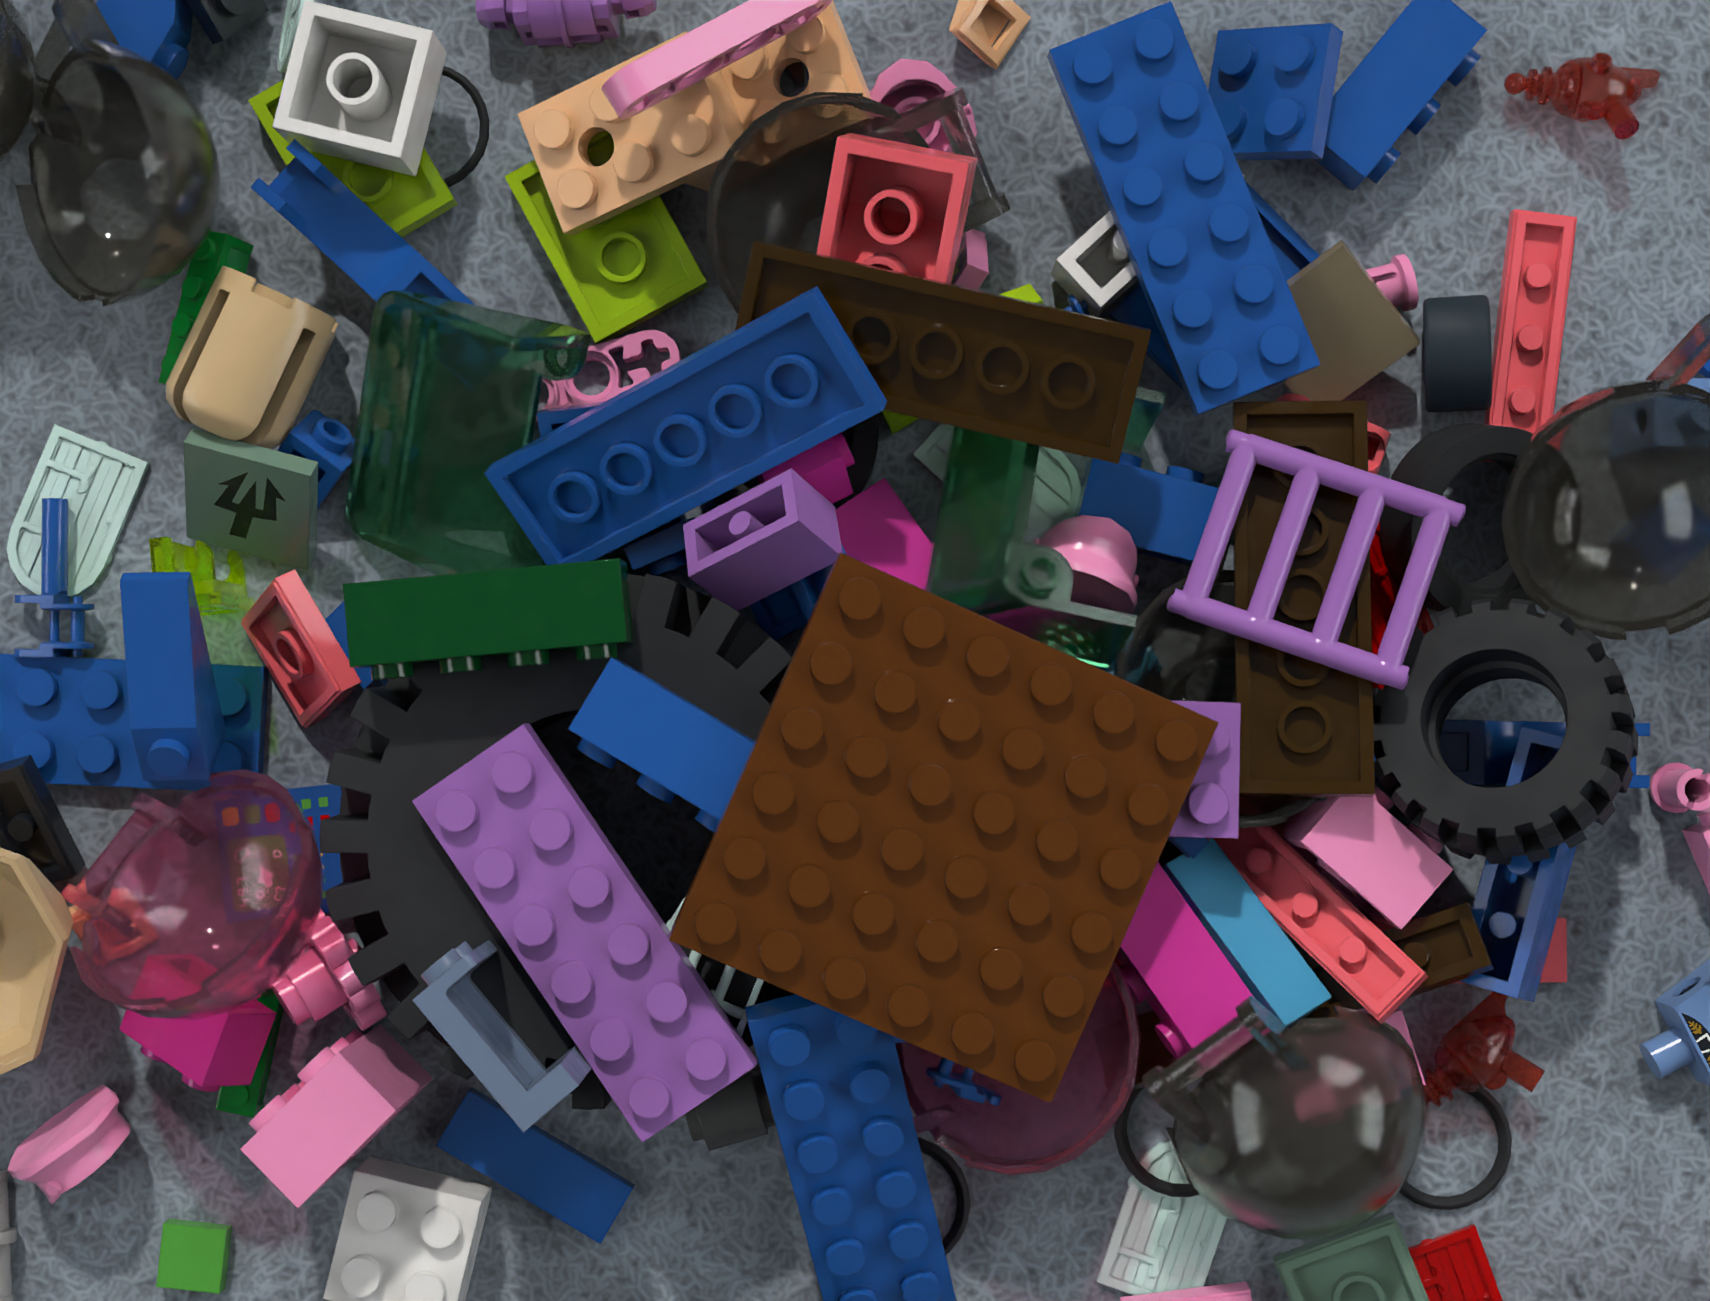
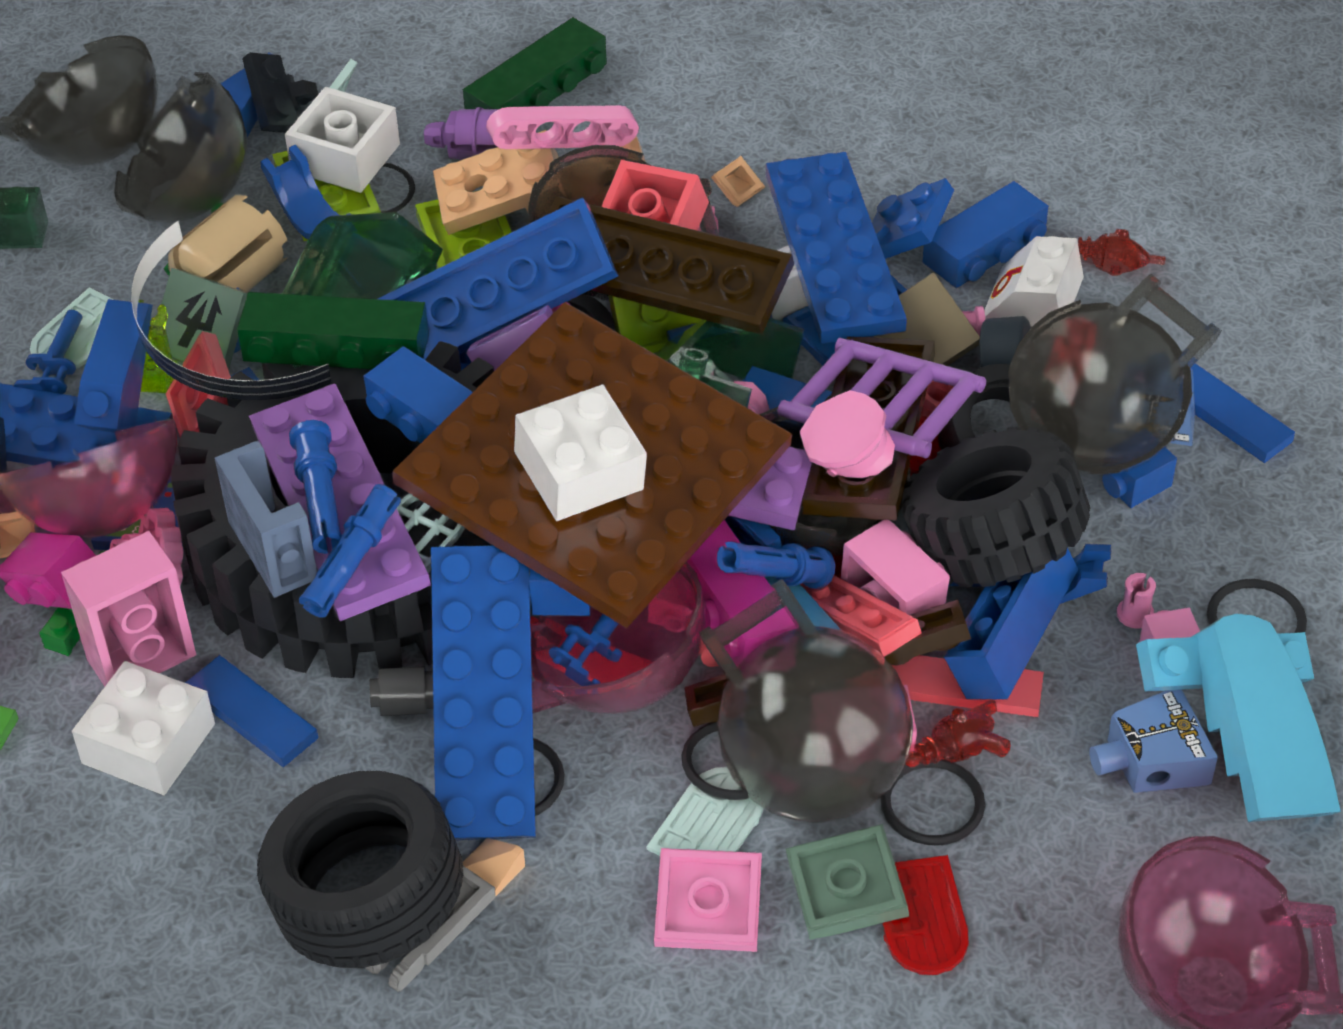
camera: 10 degrees right, 40 degrees down
(166, 598) = (212, 385): none -> sticker
(551, 934) = (316, 470): none -> blue pin
(650, 1047) = (360, 534): none -> blue pin
(941, 888) = (580, 452): none -> white brick
(1228, 883) = (789, 563): none -> blue pin
(1289, 689) = (848, 436): none -> bright pink hat
(1475, 199) = (1037, 280): none -> white slope

